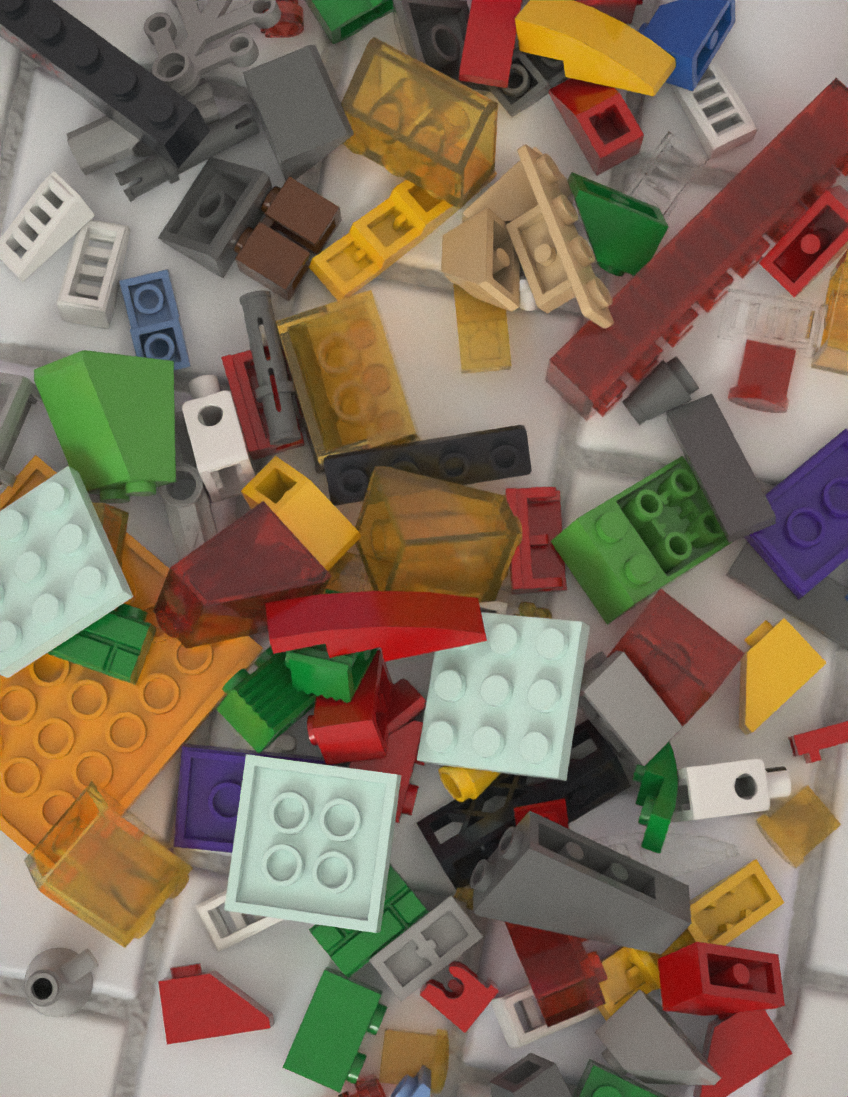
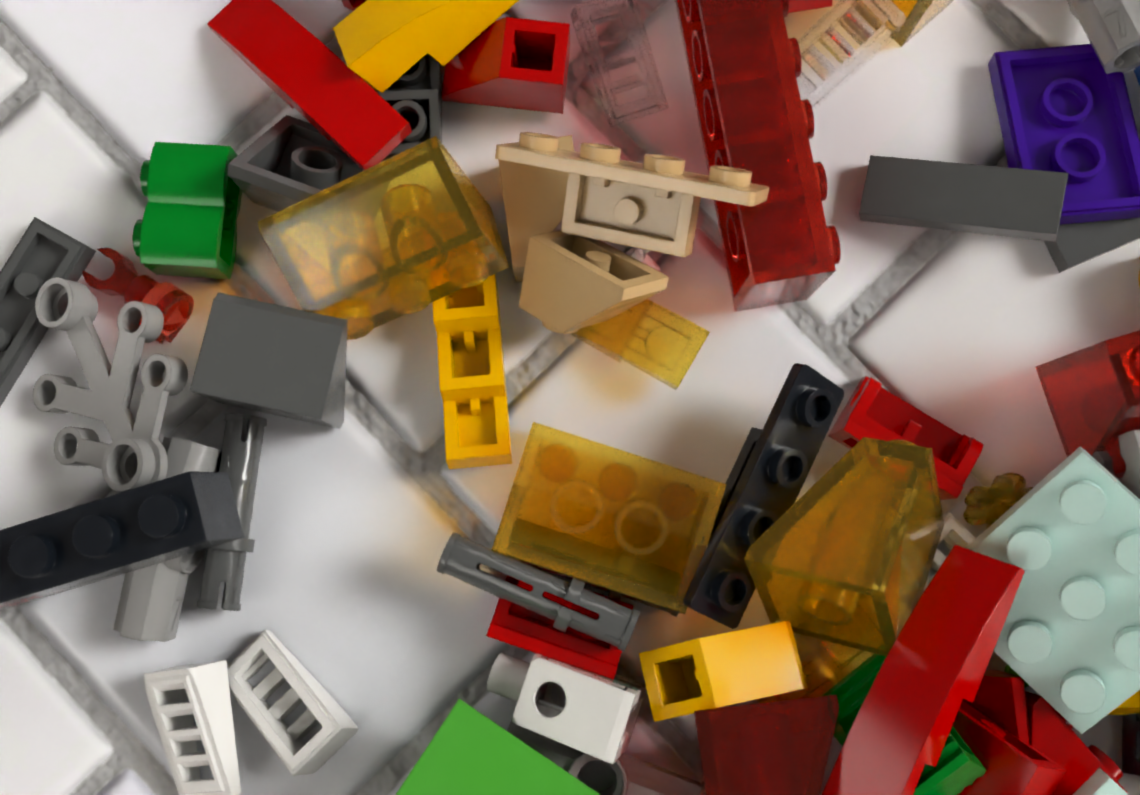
camera: 60 degrees left, 0 degrees up
(155, 318) = (391, 676): medium blue slope -> none
(216, 213) = (322, 524): dark grey slope -> none
(300, 217) = (390, 440): reddish brown piece -> none
(618, 227) = (642, 117): green slope -> none
(641, 540) = (982, 331): bright green slope -> none
(661, 391) = (844, 197): dark grey cone -> none
(763, 377) = (884, 95): clear red tile -> none

